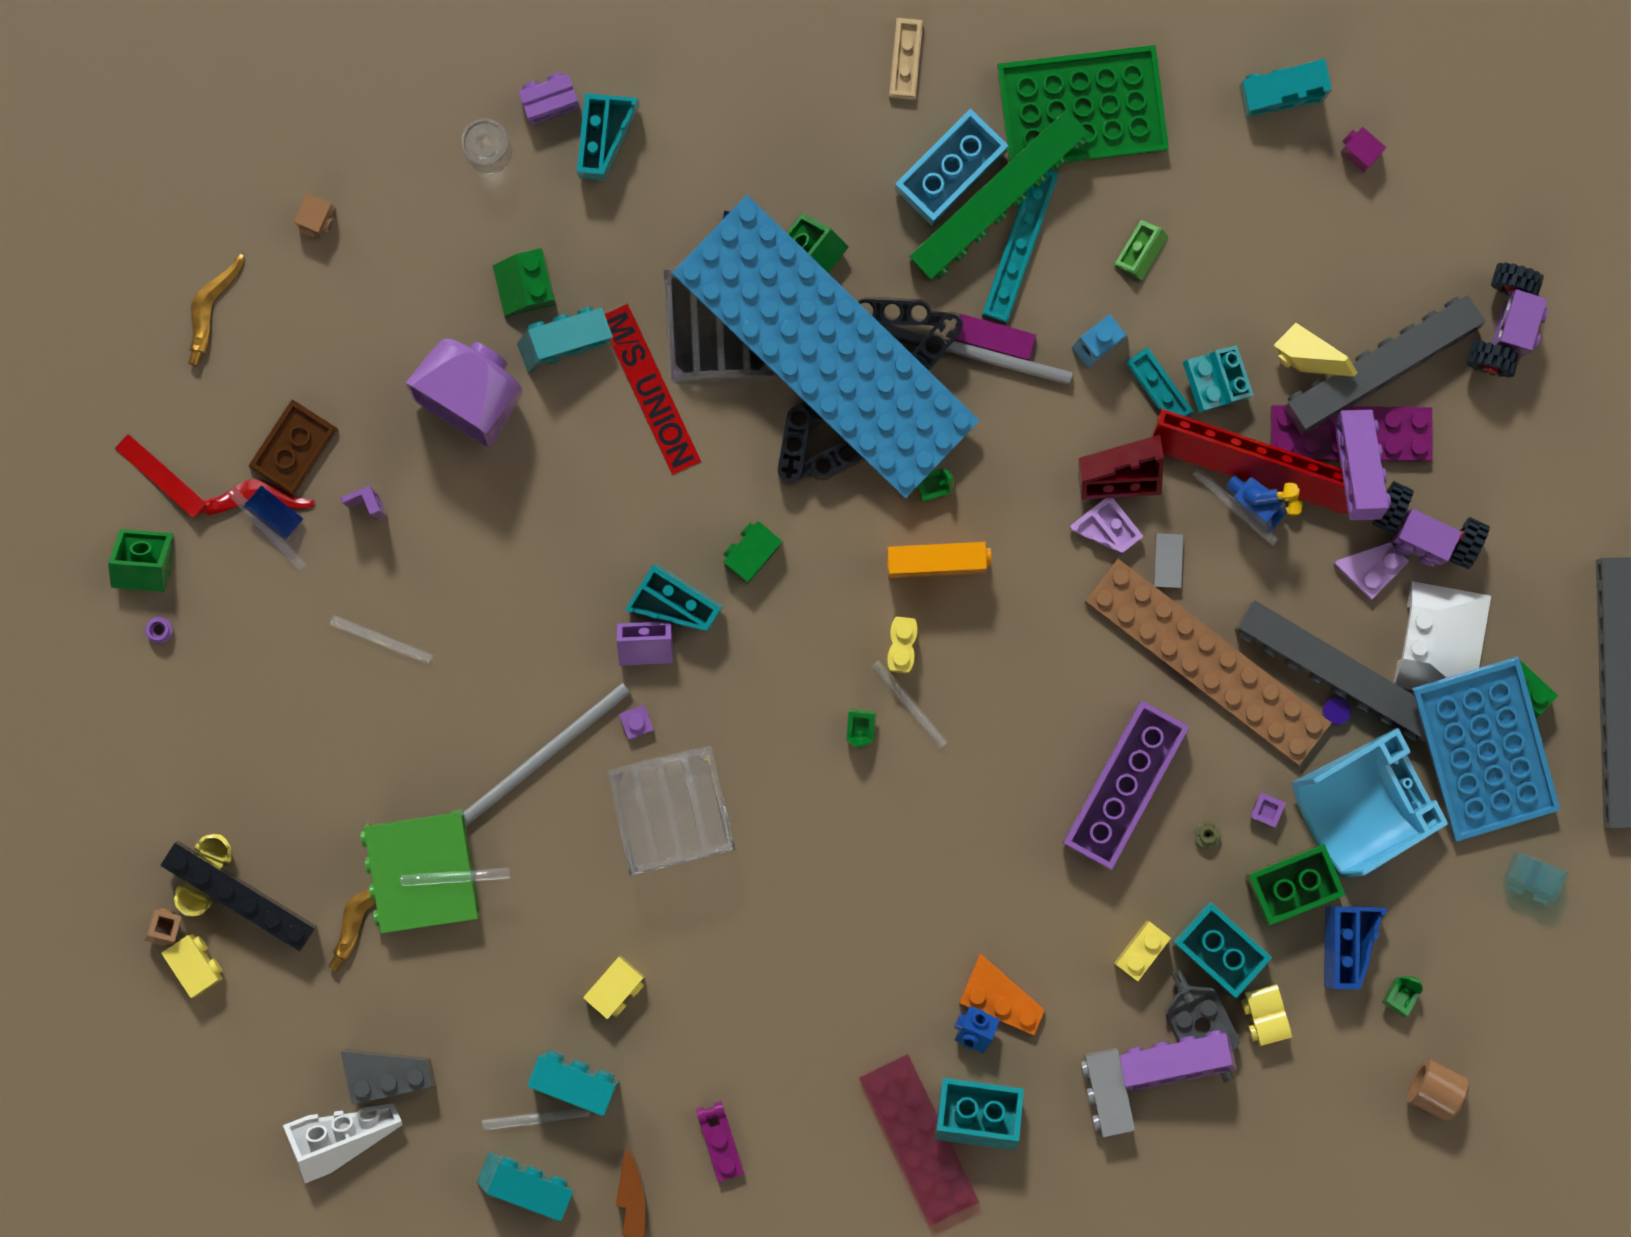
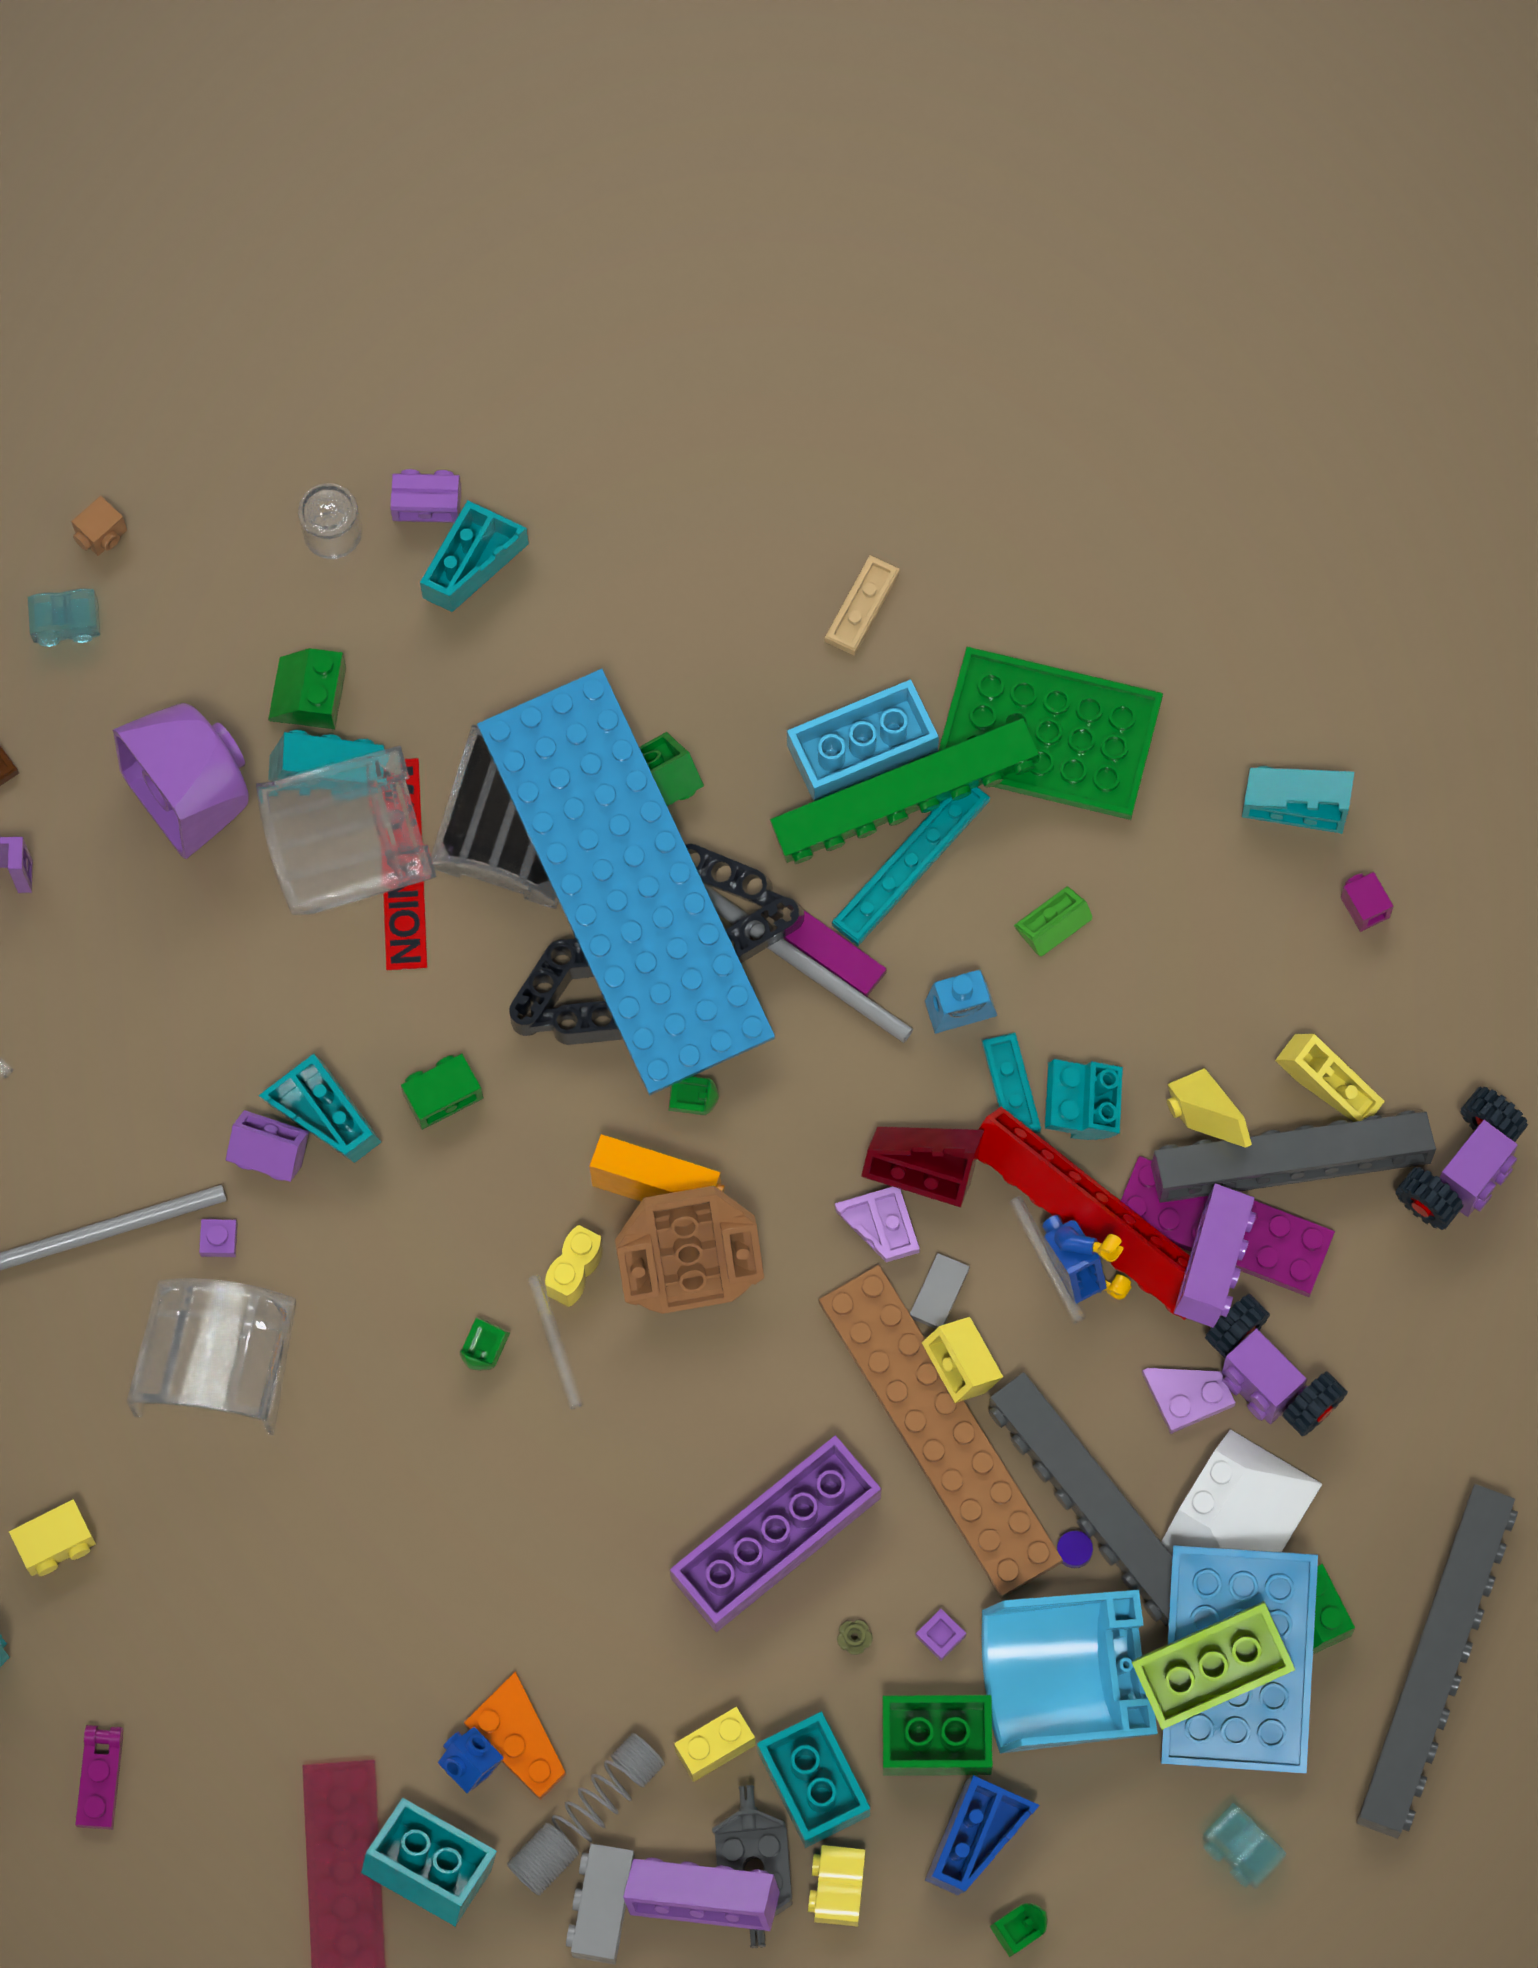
camera: 20 degrees right, 15 degrees down
(319, 296) = (63, 617): none -> clear light blue brick
(601, 387) = (343, 831): none -> clear windscreen
(985, 607) = (688, 1251): none -> medium nougat piece
(1058, 1071) = (550, 1849): none -> light grey piece
(1206, 606) = (962, 1359): none -> light yellow brick
(1385, 294) = (1328, 1077): none -> light yellow slope
(1475, 765) = (1213, 1665): none -> lime brick

